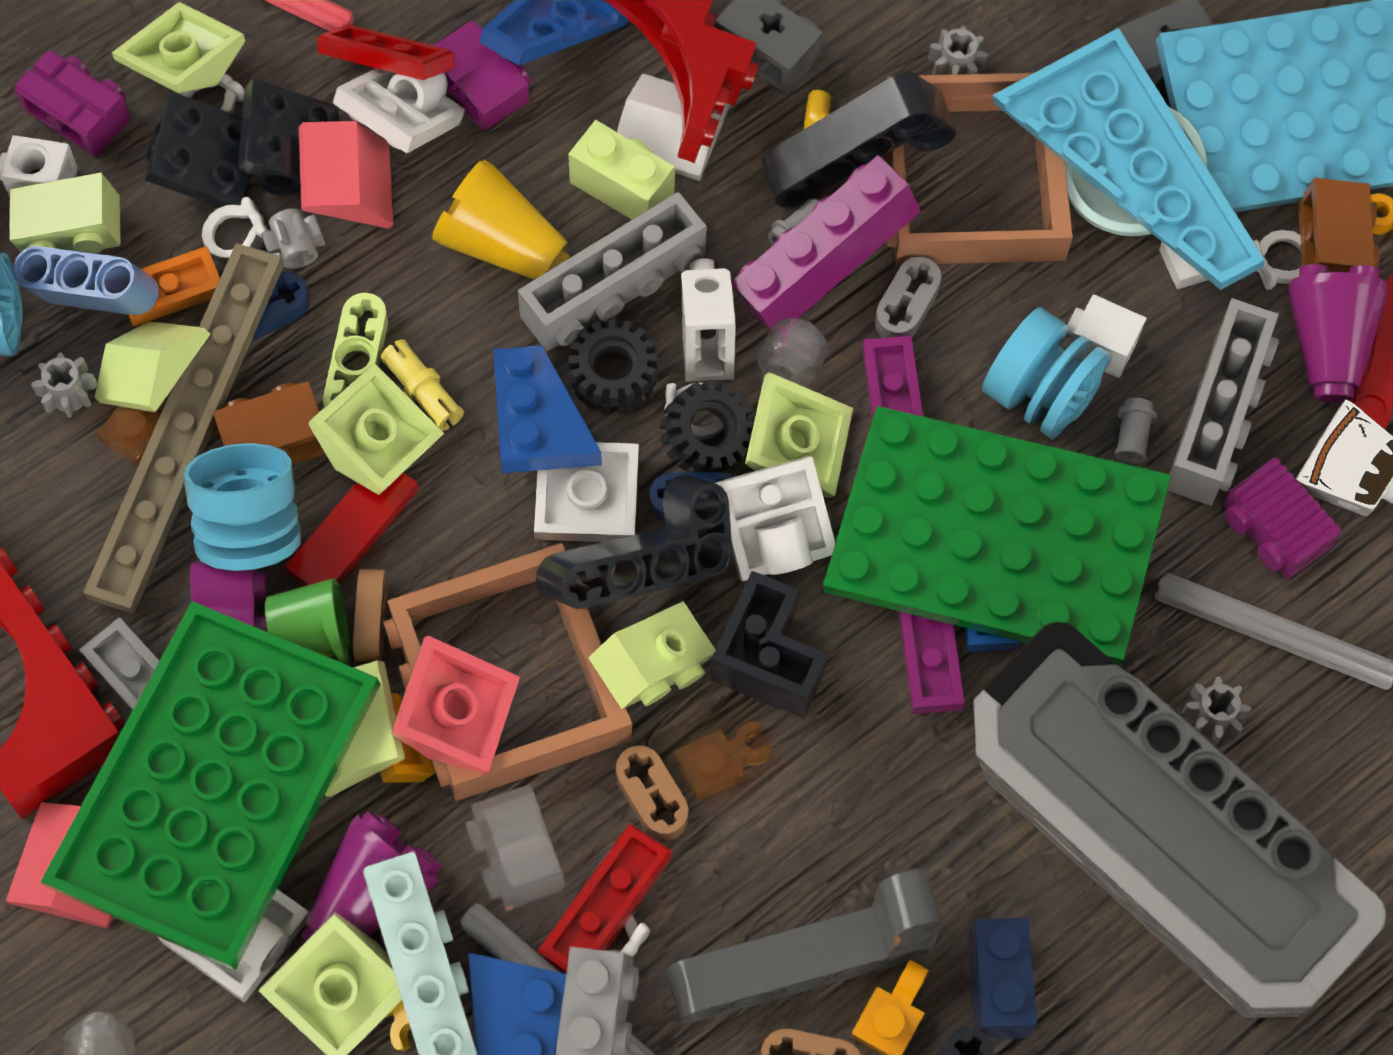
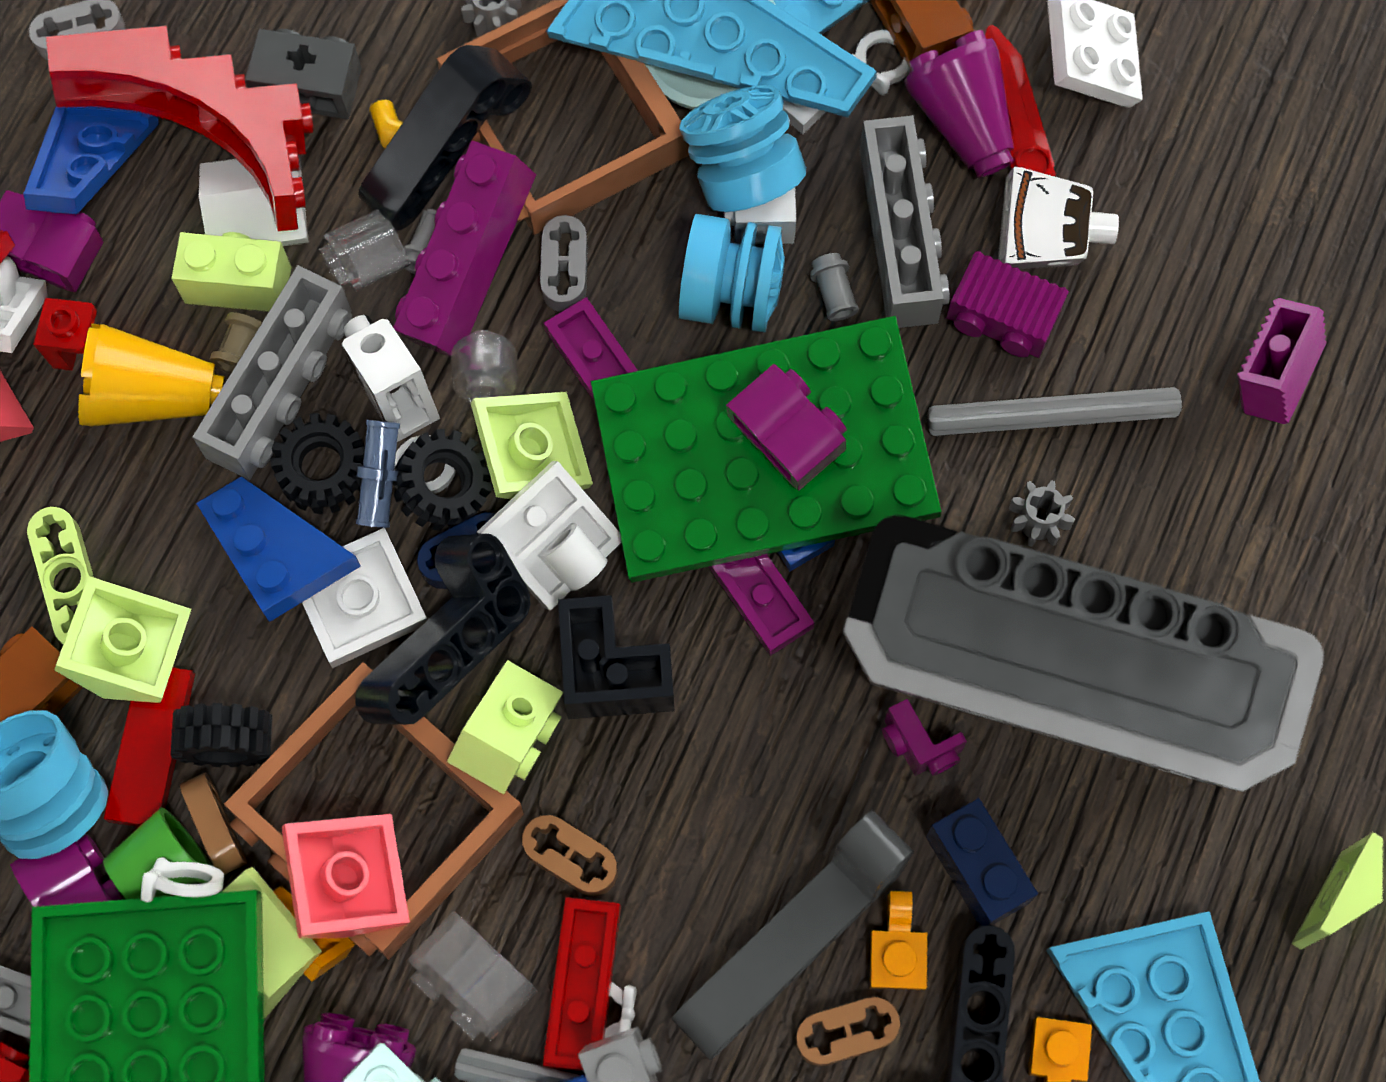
camera: 25 degrees left, 5 degrees up
(310, 628) = (157, 879): none -> white piece
(414, 545) = (221, 735): none -> black tyre
(422, 385) = (144, 572): light yellow pin -> none
(457, 155) = (63, 331): none -> red bracket
(599, 227) = (235, 341): none -> dark tan bush
(655, 395) = (377, 473): none -> sand blue pin
(715, 763) = (613, 795): clear orange plate -> none
(740, 207) = (363, 251): none -> clear brick
(995, 840) = (908, 738): none -> magenta bracket
(1024, 521) = (787, 425): none -> magenta brick
(1112, 272) = (743, 148): none -> medium azure wheel

